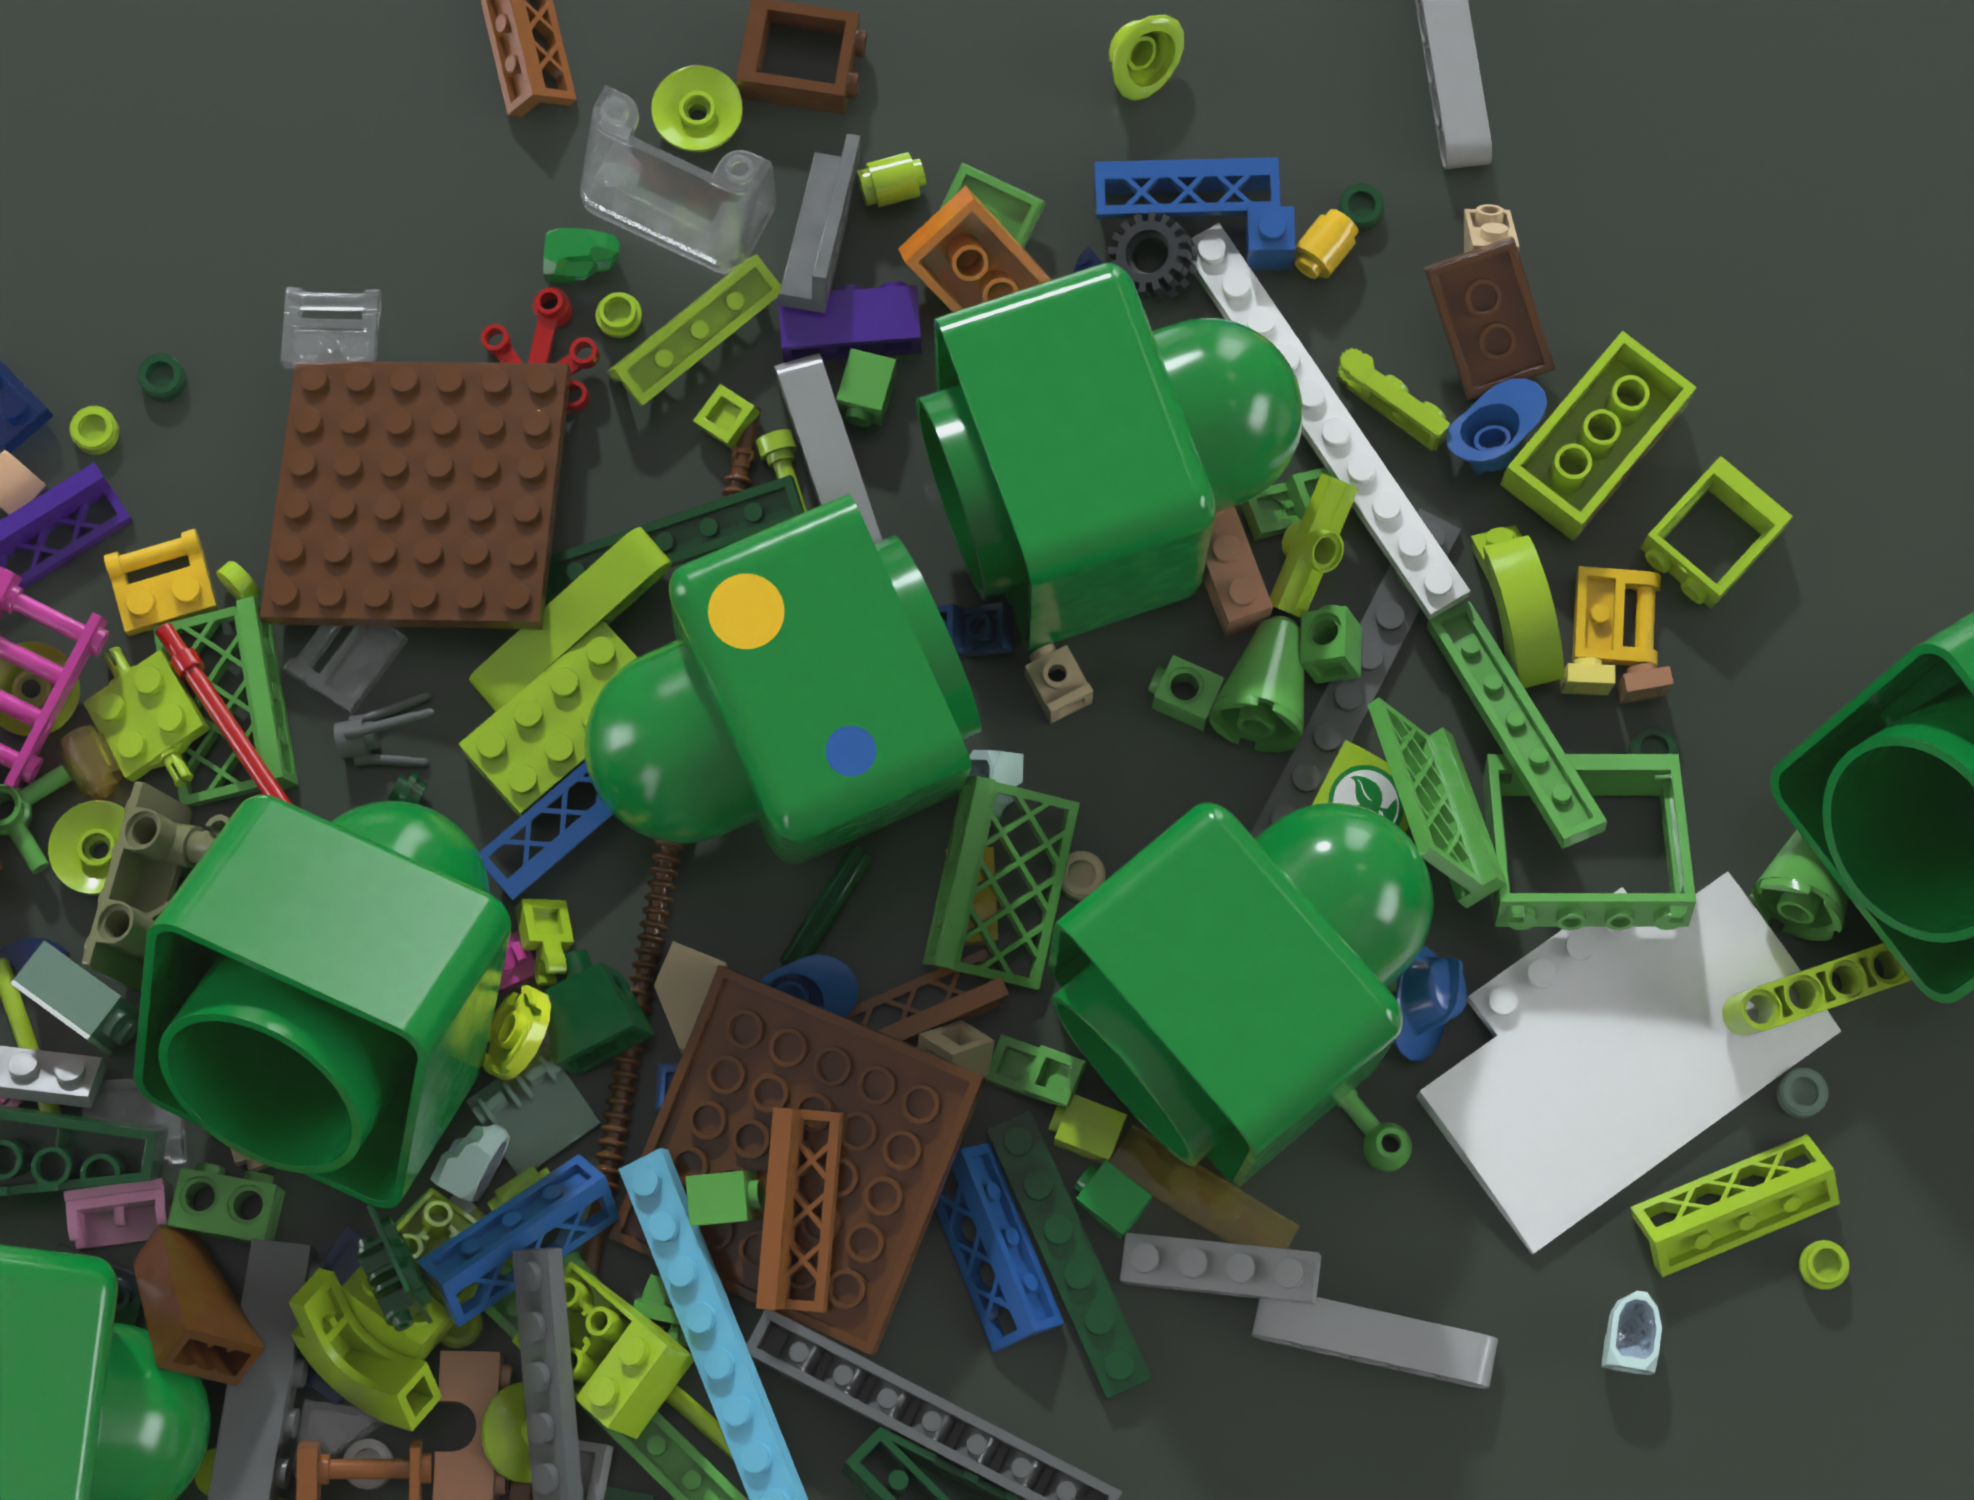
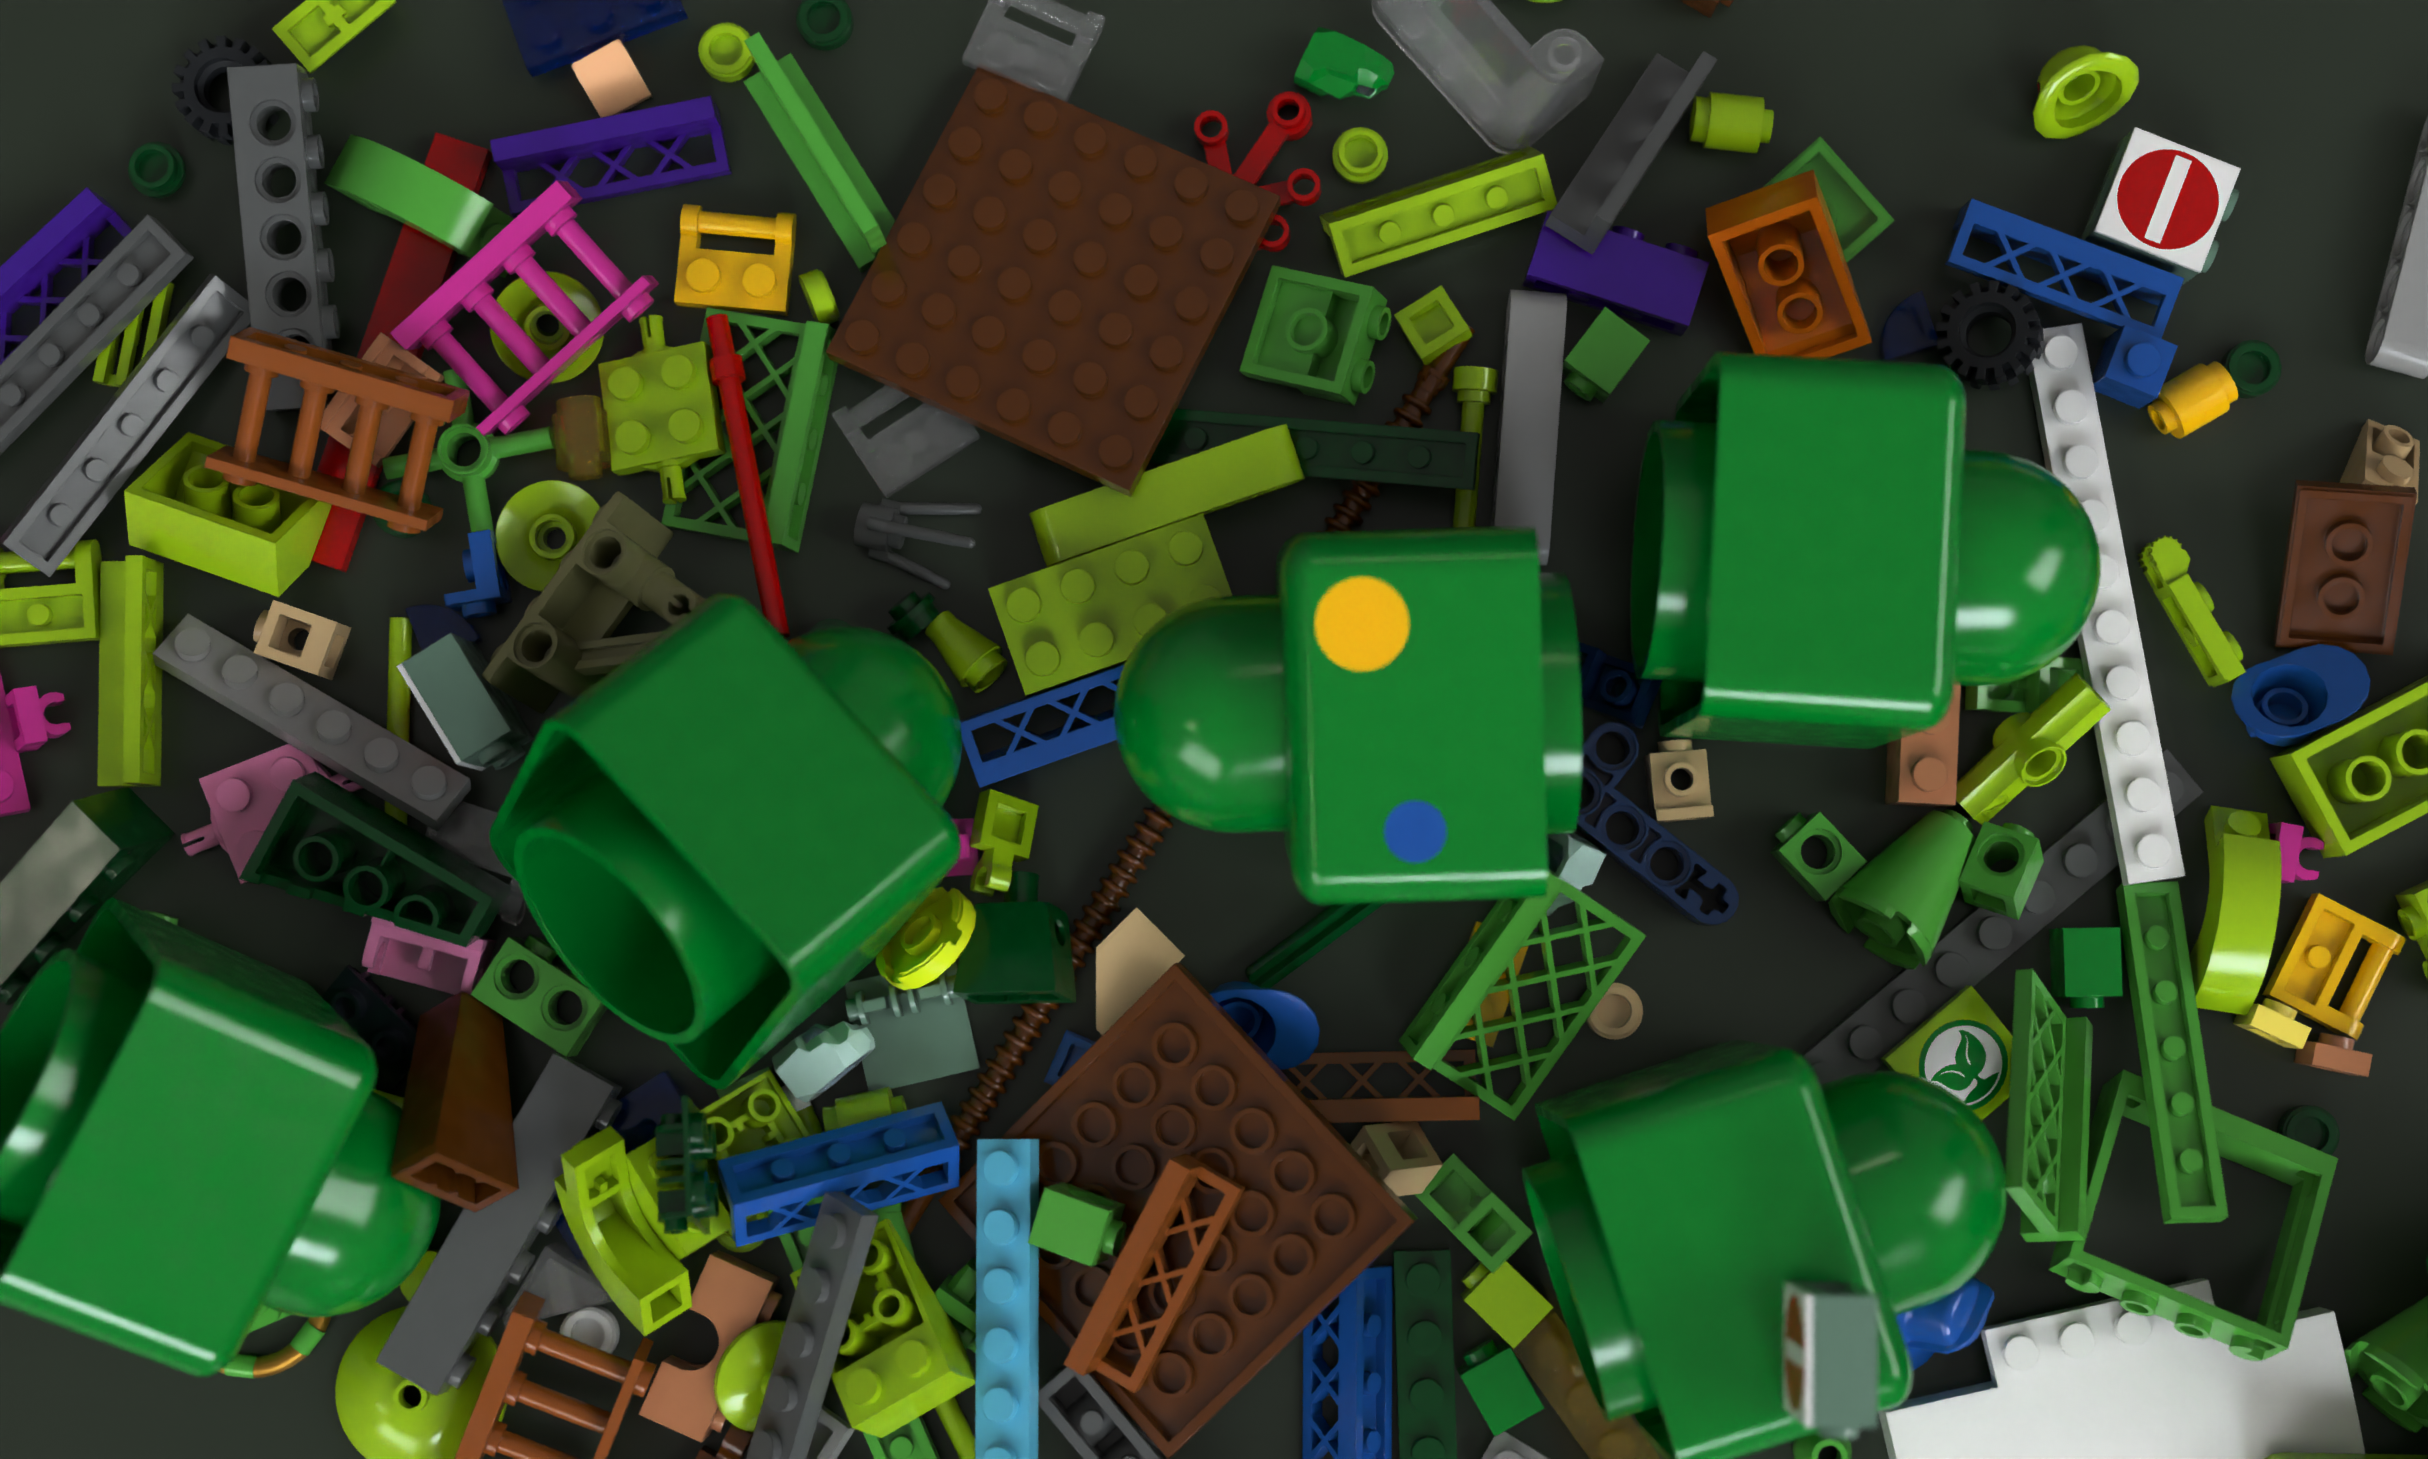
camera: 25 degrees right, 10 degrees up
(52, 893) = (490, 577): none -> blue bracket
(194, 474) = (819, 153): none -> bright green fence
(464, 805) = (967, 652): none -> lime cone
(639, 458) = (1316, 335): none -> bright green plate
(1052, 730) = (1647, 835): none -> dark blue beam
(1242, 111) = (2163, 204): none -> piece
(1321, 1000) = (1831, 1357): none -> sand green piece
(1427, 690) = (2085, 965): none -> green brick
(1542, 543) = (2291, 845): none -> dark pink tile

